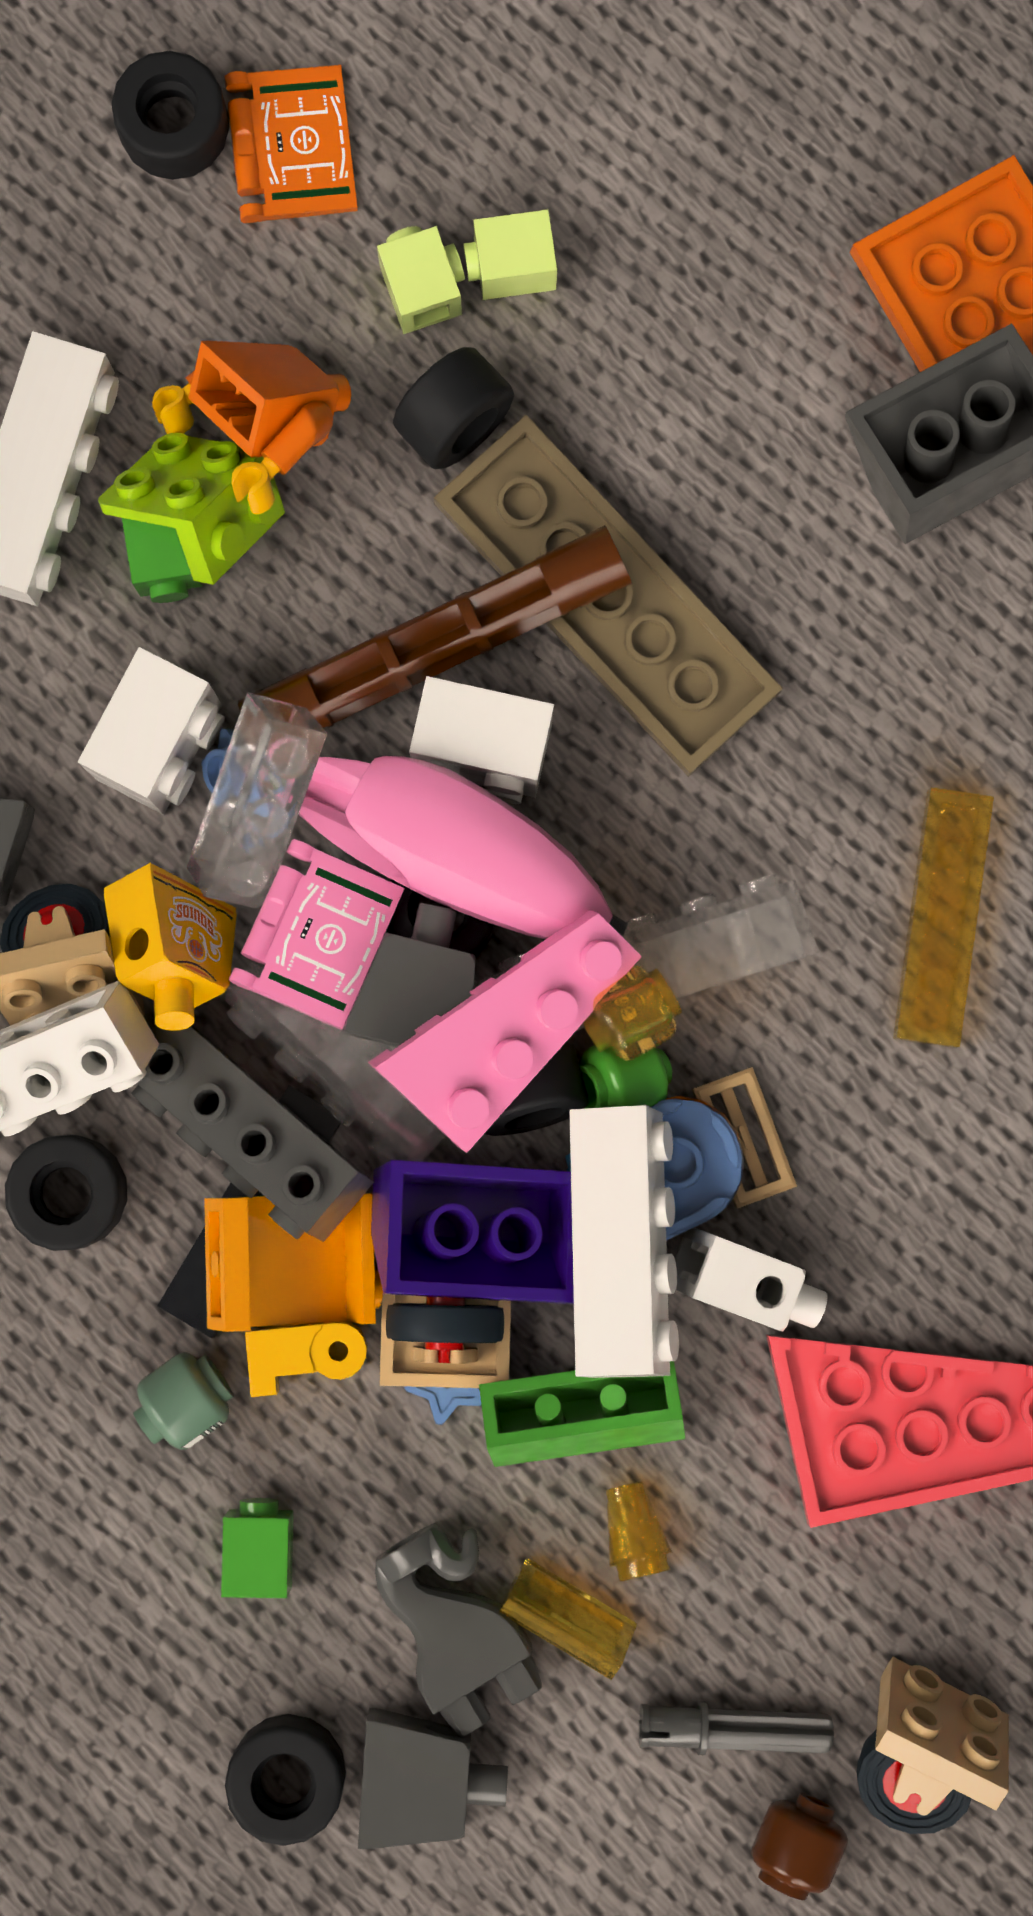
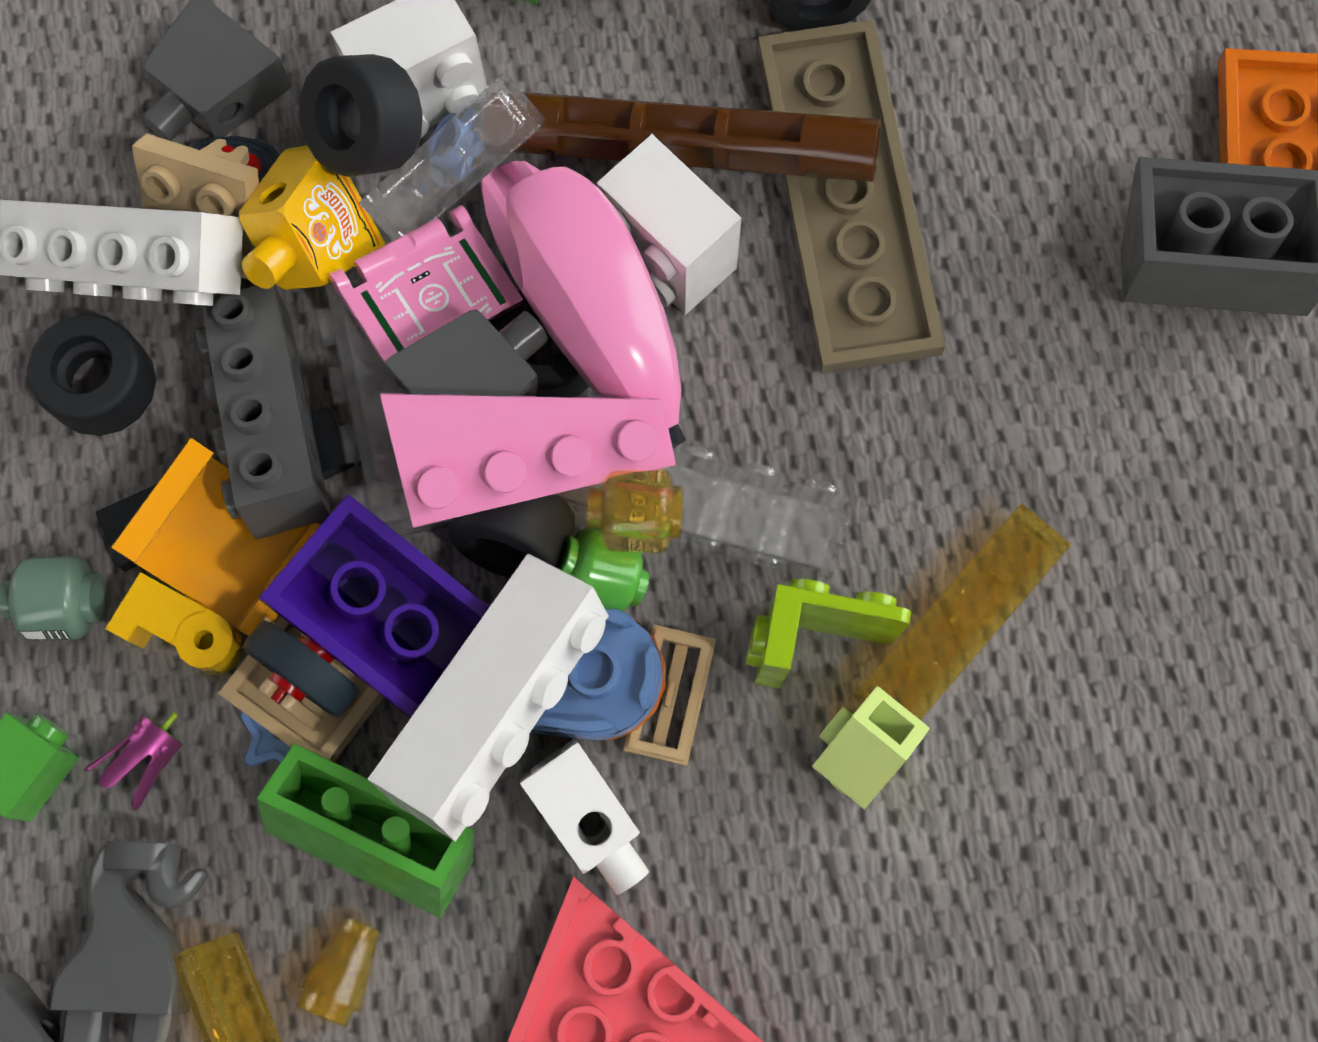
camera: 40 degrees right, 10 degrees down
(155, 853) = (360, 114): none -> black tyre
(346, 1475) = (144, 739): none -> flat silver piece
(808, 1038) = (811, 607): none -> lime bracket
(936, 1077) = (868, 746): none -> yellowish green brick

